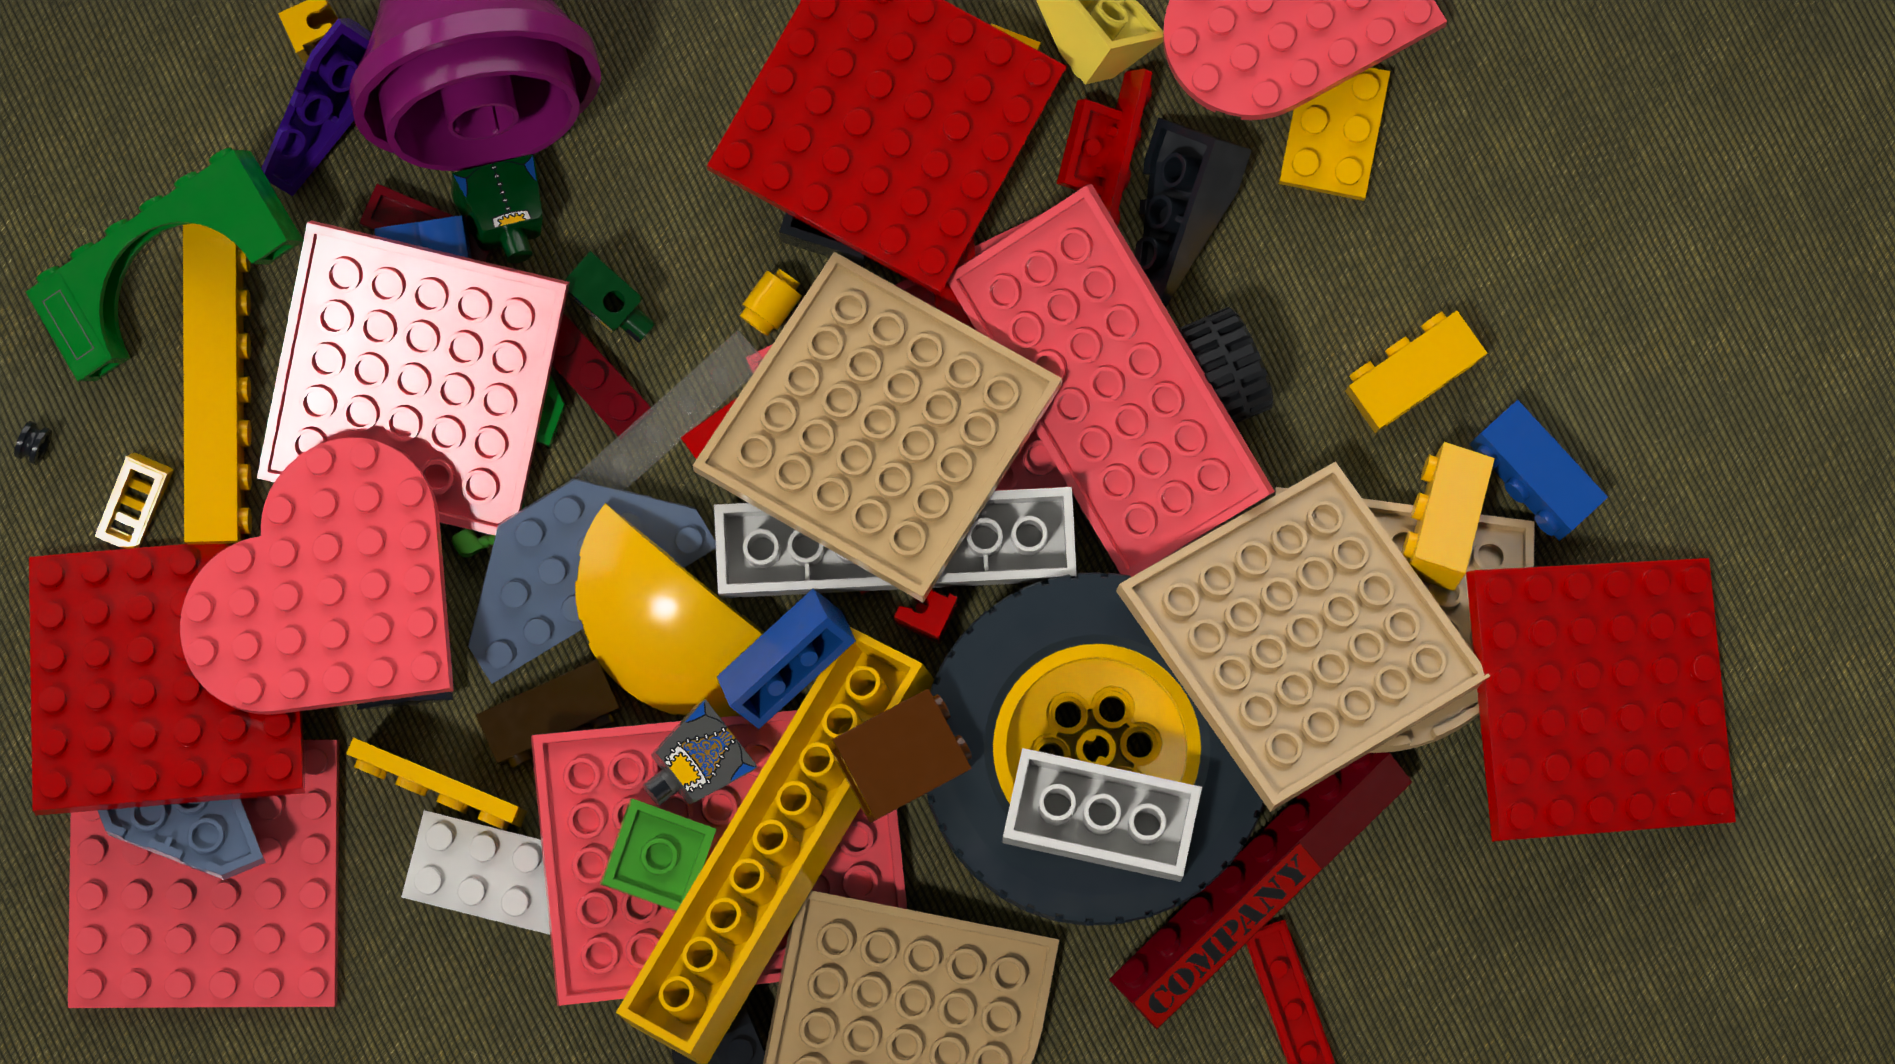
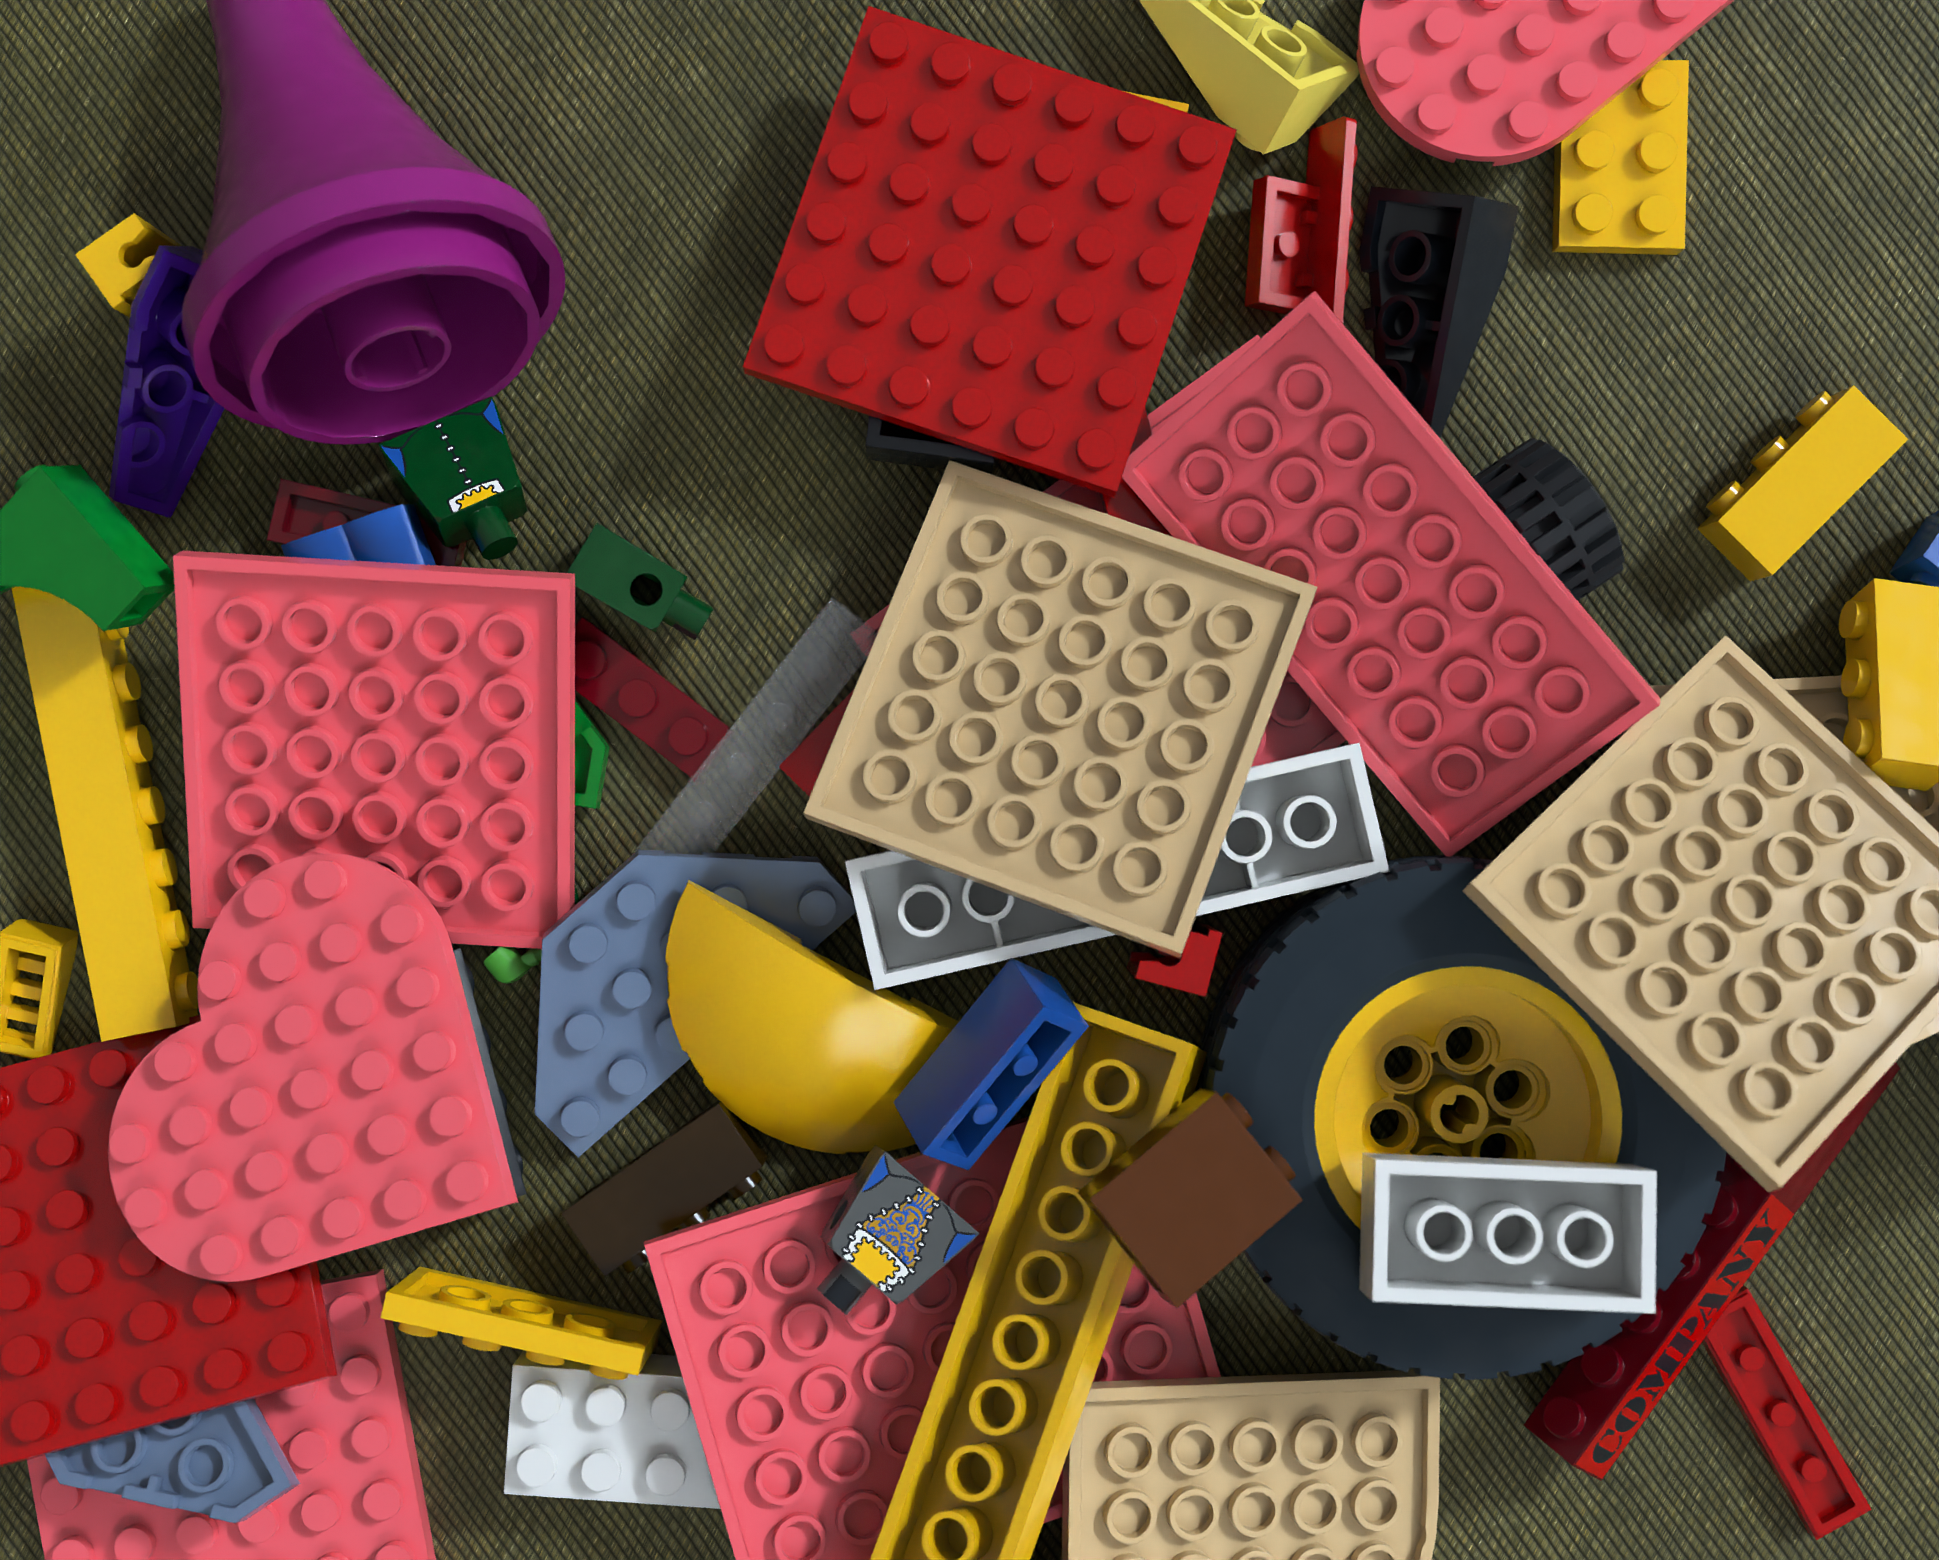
camera: 15 degrees left, 5 degrees up
(657, 855) = (857, 1386): bright green plate -> none
(771, 301) = (871, 547): yellow brick -> none

